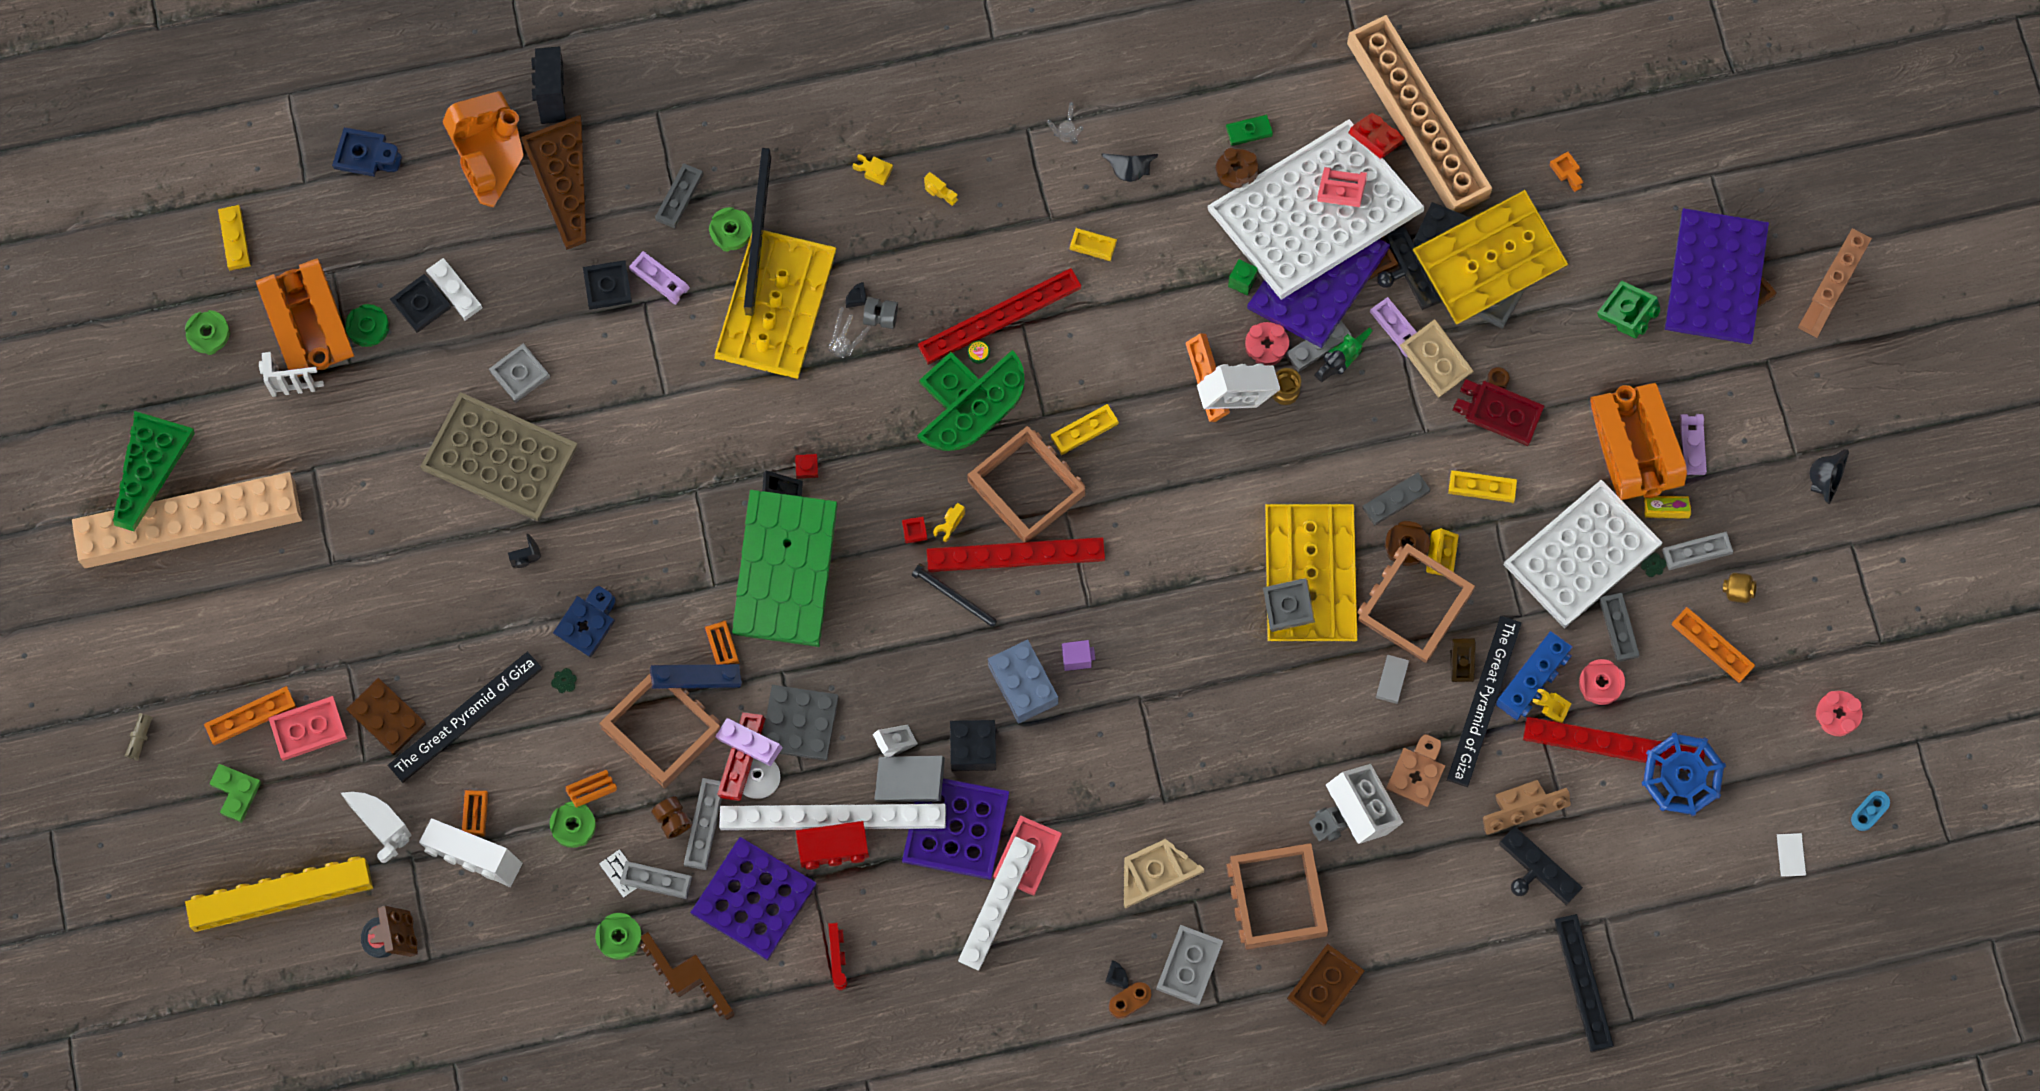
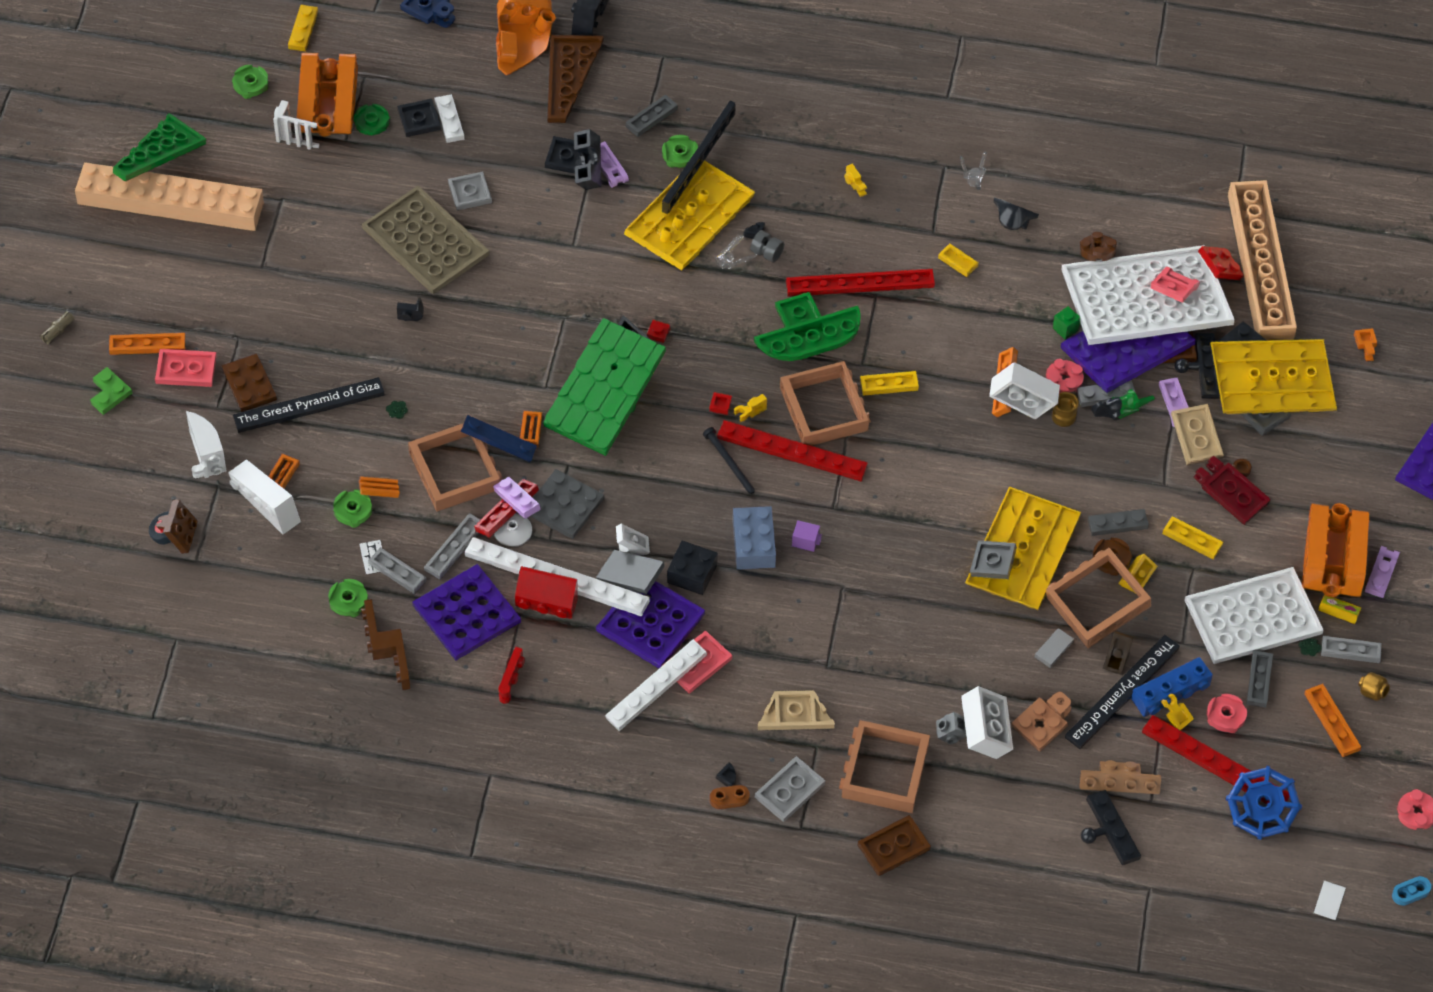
camera: 20 degrees right, 15 degrees down
(278, 894) = (104, 470): yellow brick -> none
(596, 615) = (443, 371): dark blue plate -> none
(633, 272) = (588, 145): none -> black arch
(672, 818) = (431, 529): reddish brown wheel -> none
(876, 170) = (811, 152): yellow plate -> none
(978, 352) = (831, 301): tile -> none
(1249, 130) = (1120, 227): green plate -> none
(1583, 983) = (1109, 927): black tile -> none
(1630, 309) = (1373, 456): green plate -> none

